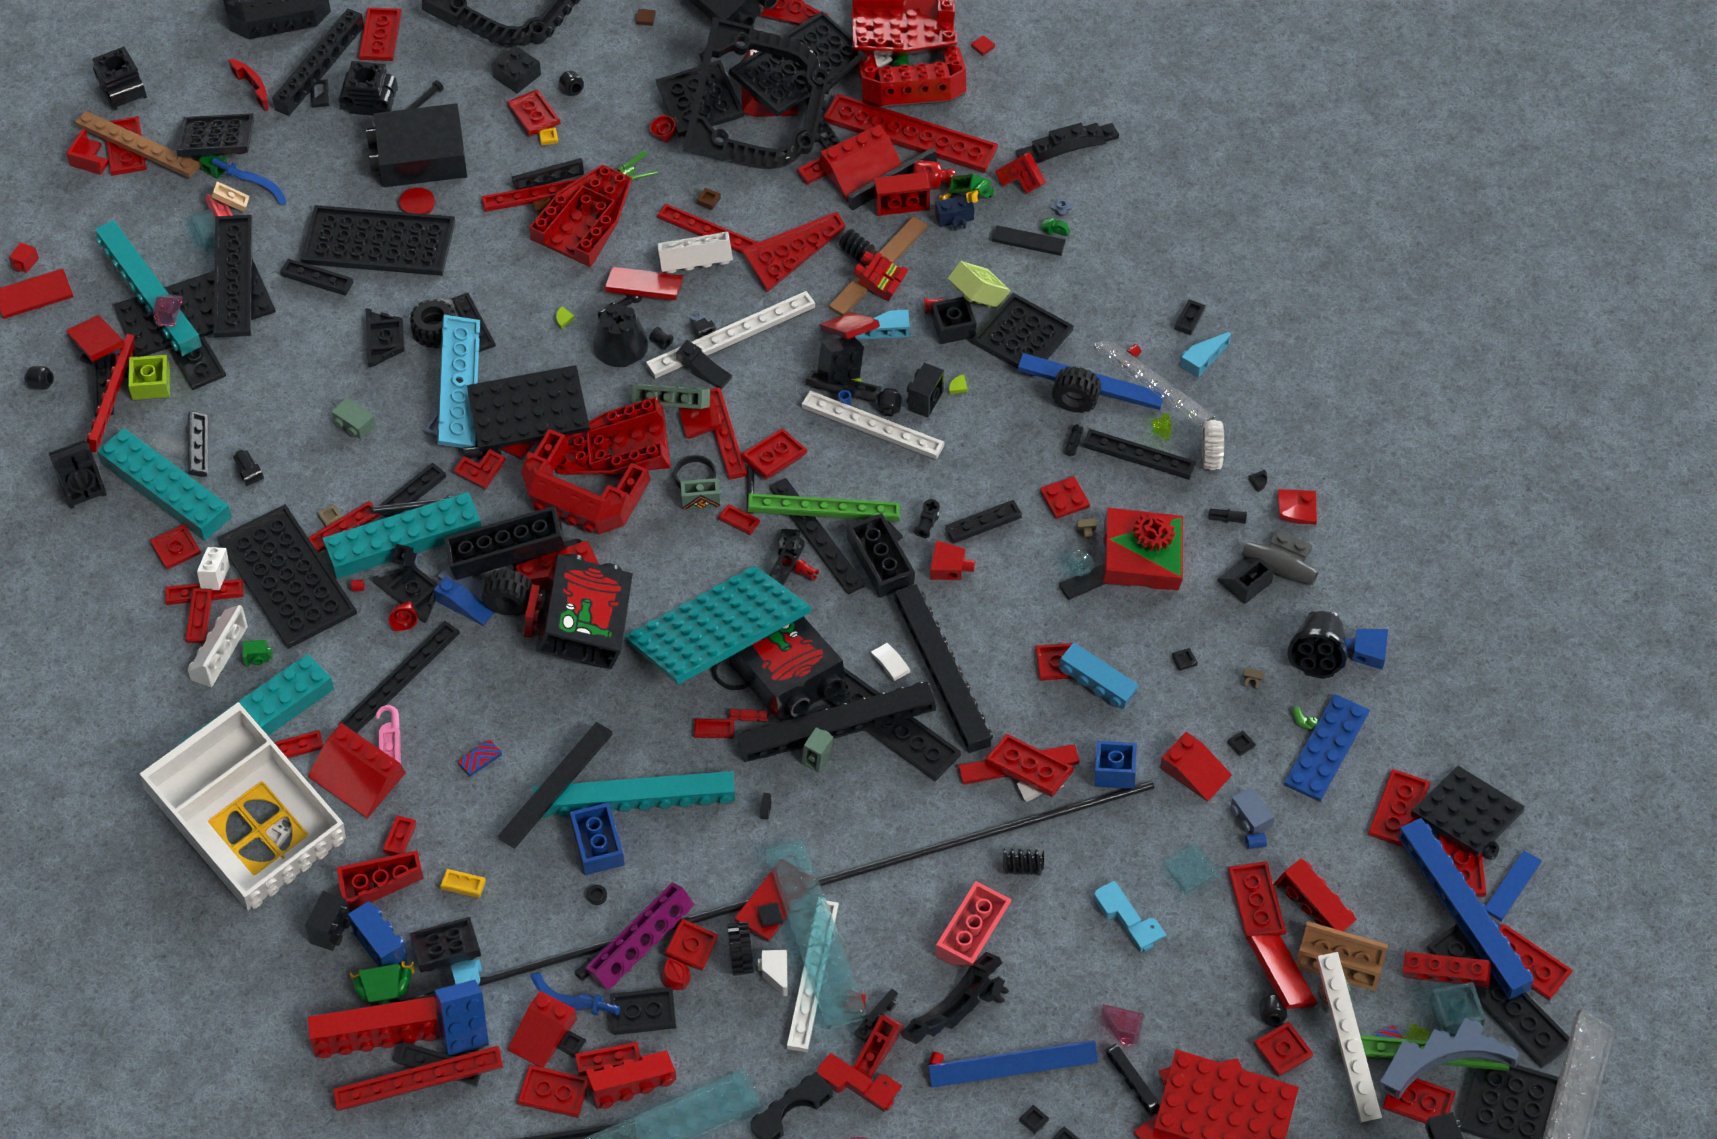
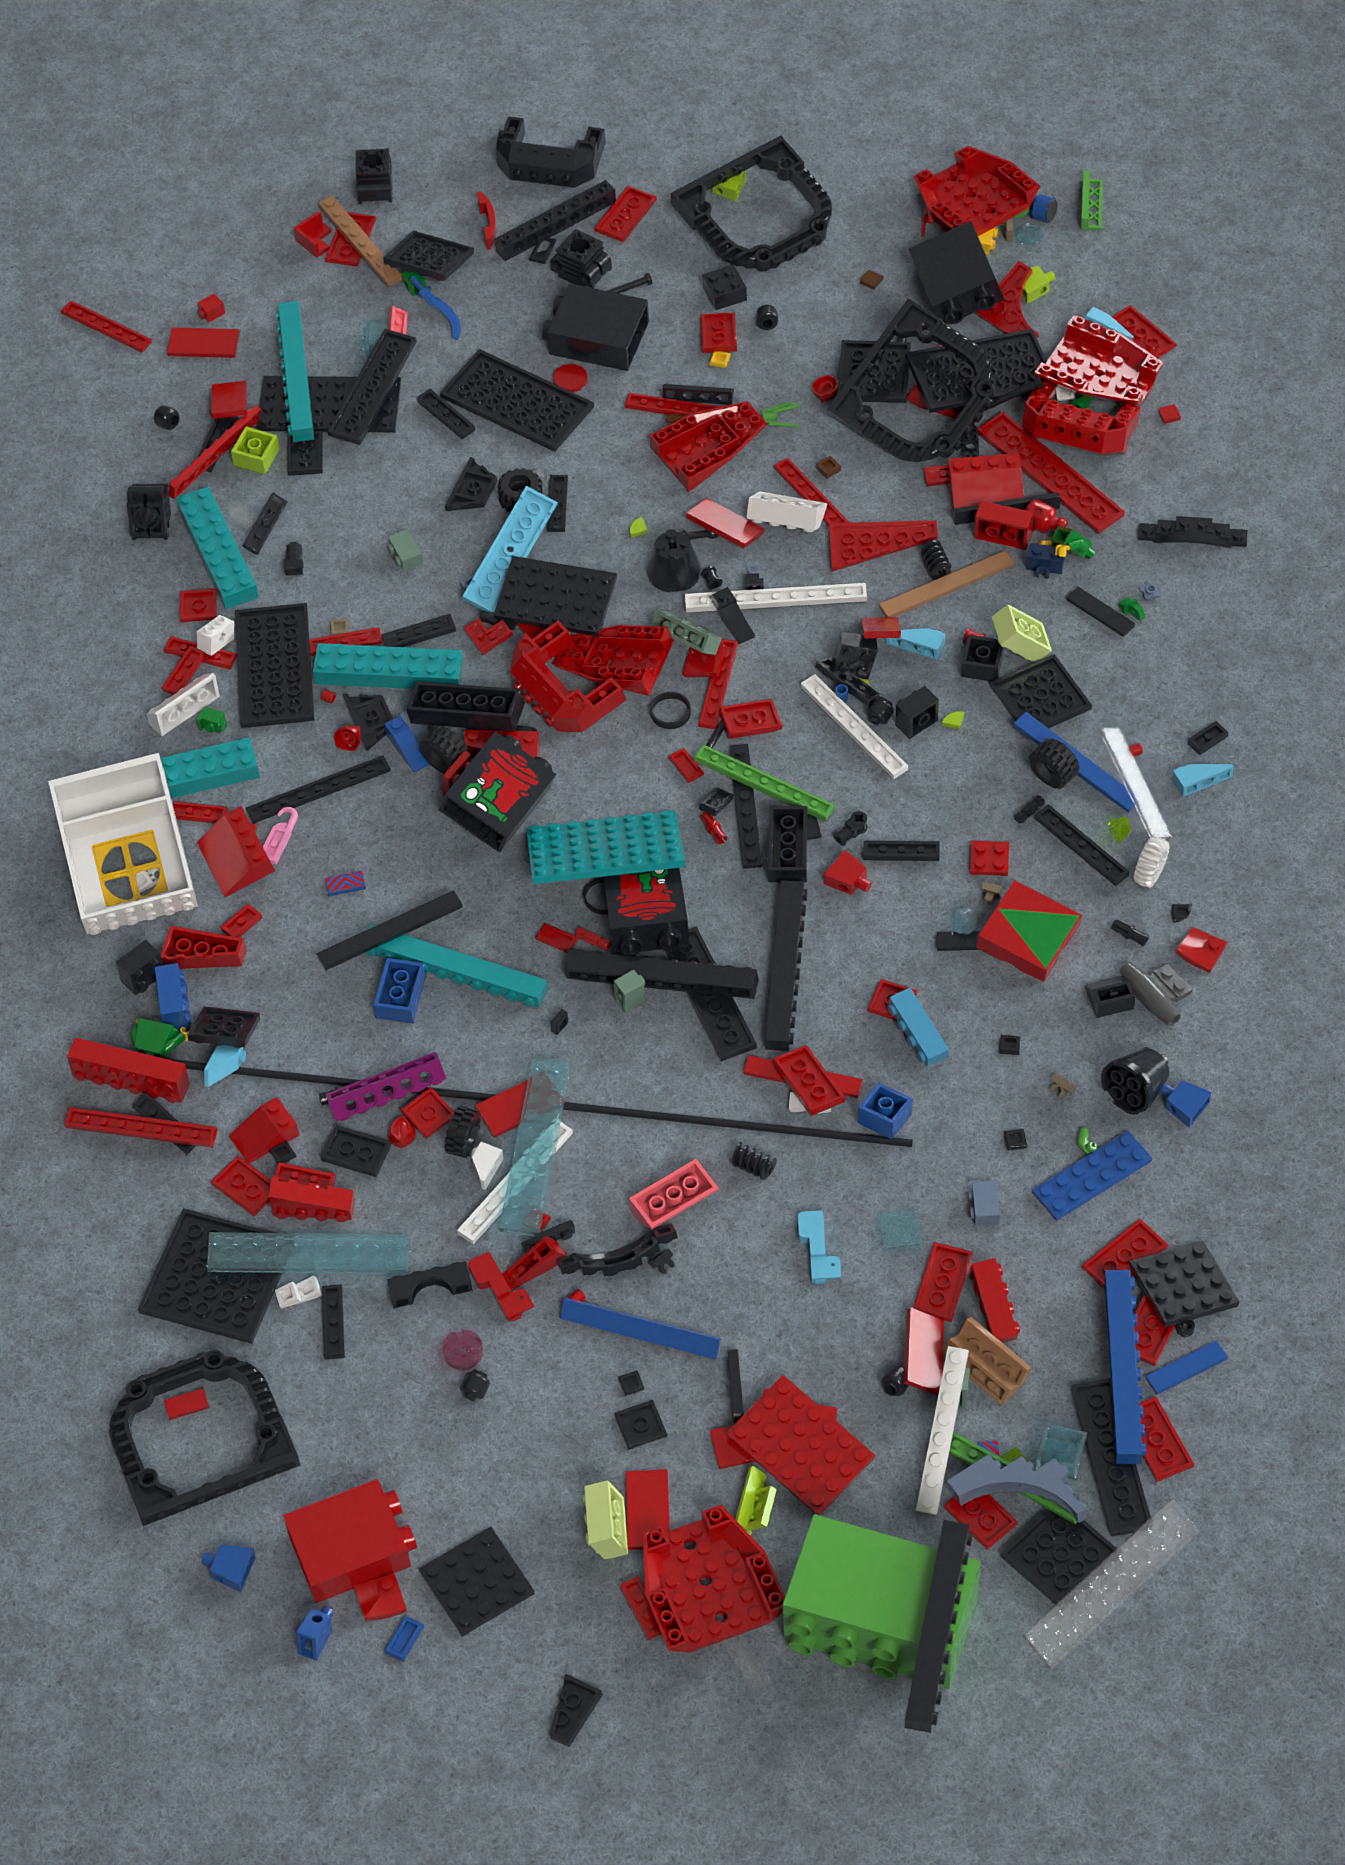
camera: 30 degrees right, 0 degrees up
(167, 309) = (296, 395): clear pink slope -> none
(230, 196) = (411, 315): tan plate -> none
(403, 506) = (401, 642): black bar -> none
(405, 556) = (377, 686): black piece -> none
(461, 1017) = (198, 1090): blue brick -> none
(463, 883) = (270, 983): yellow plate -> none
(576, 1002) = (304, 1120): blue sword -> none
(596, 894) = (375, 1038): black tile -> none
(700, 493) = (662, 728): sand green brick -> none
(770, 915) = (505, 1114): black tile -> none
(774, 571) = (693, 816): black beam -> none
(880, 276) = (940, 592): red hips -> none
(891, 661) = (743, 942): white slope -> none
(1024, 170) = (1134, 546): red panel -> none
(1123, 1023) = (758, 1337): clear pink slope -> none
(1154, 531) = (1032, 917): red gear -> none
(1195, 766) = (958, 1142): red slope -> none
(1256, 840) = (974, 1230): blue hinge -> none
(1283, 1049) = (885, 1418): red plate -> none
(1446, 969) = (1072, 1412): red brick -> none

